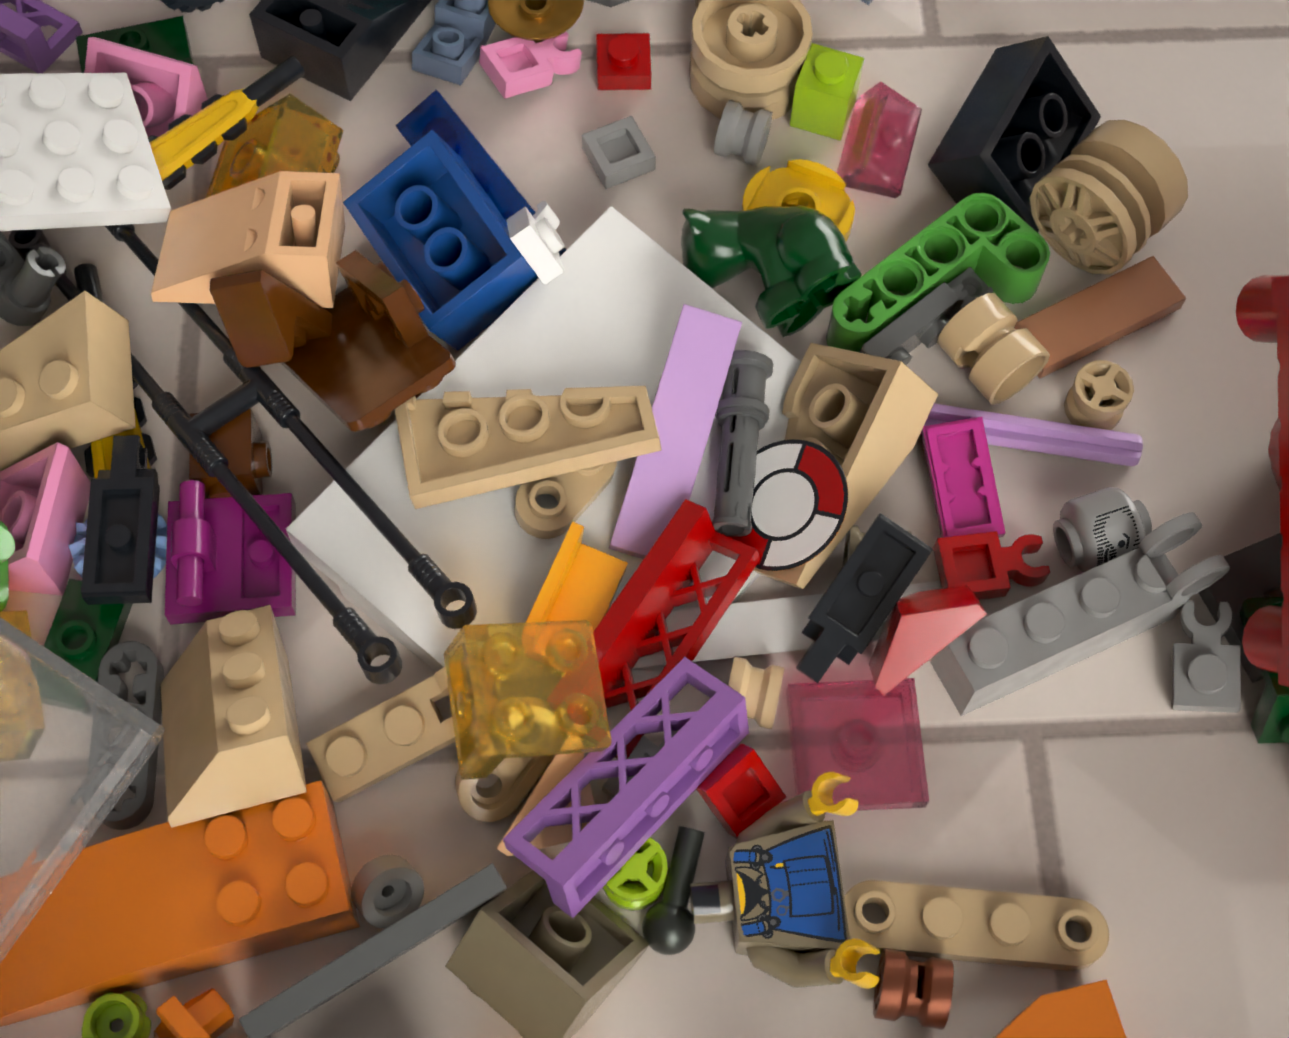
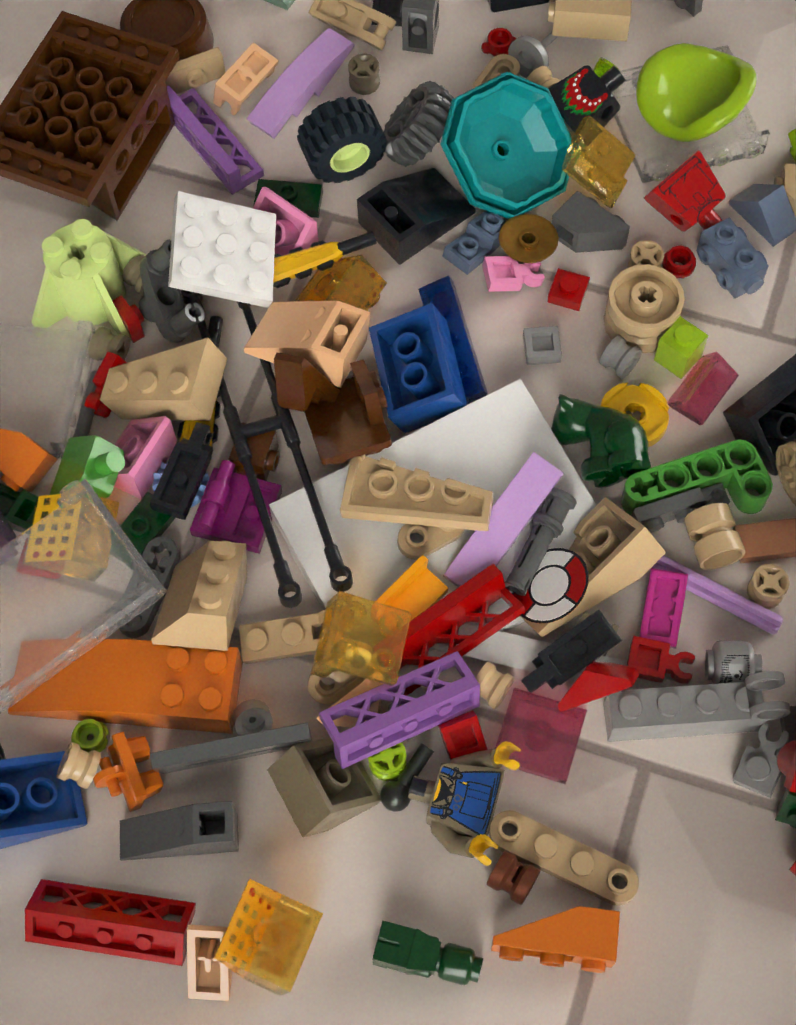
camera: 25 degrees right, 0 degrees up
(538, 240) = (467, 386): white plate -> none

